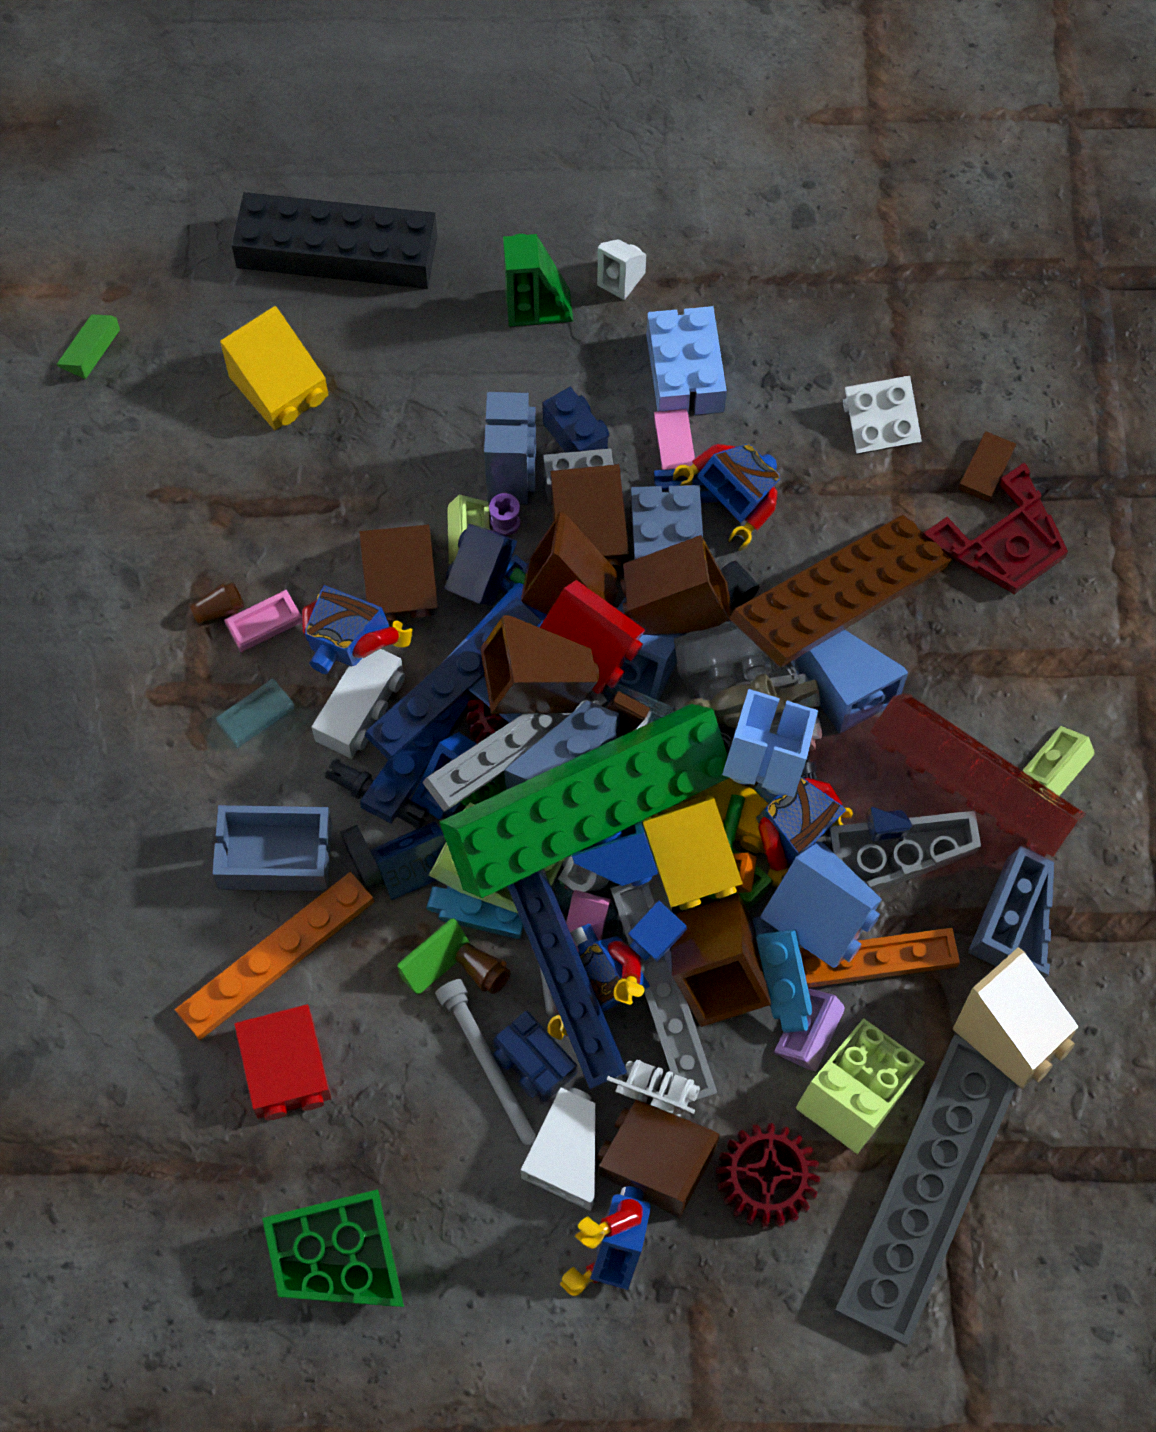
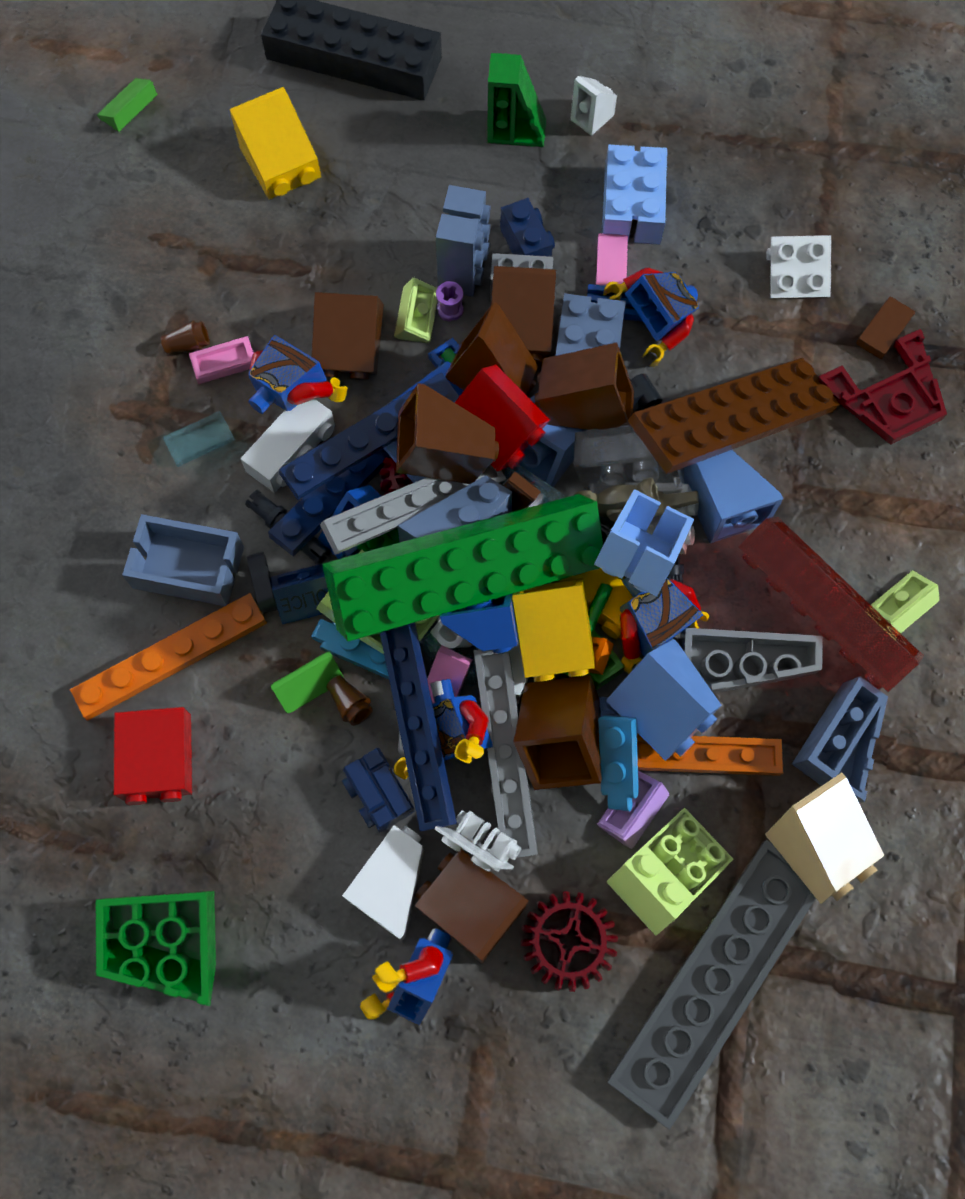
camera: 10 degrees right, 5 degrees up
(454, 998) = (318, 722): light grey piece -> none
(479, 564) = (418, 340): dark blue brick -> none
(656, 932) = (506, 699): blue brick -> none
(887, 825) = (739, 635): dark blue slope -> none

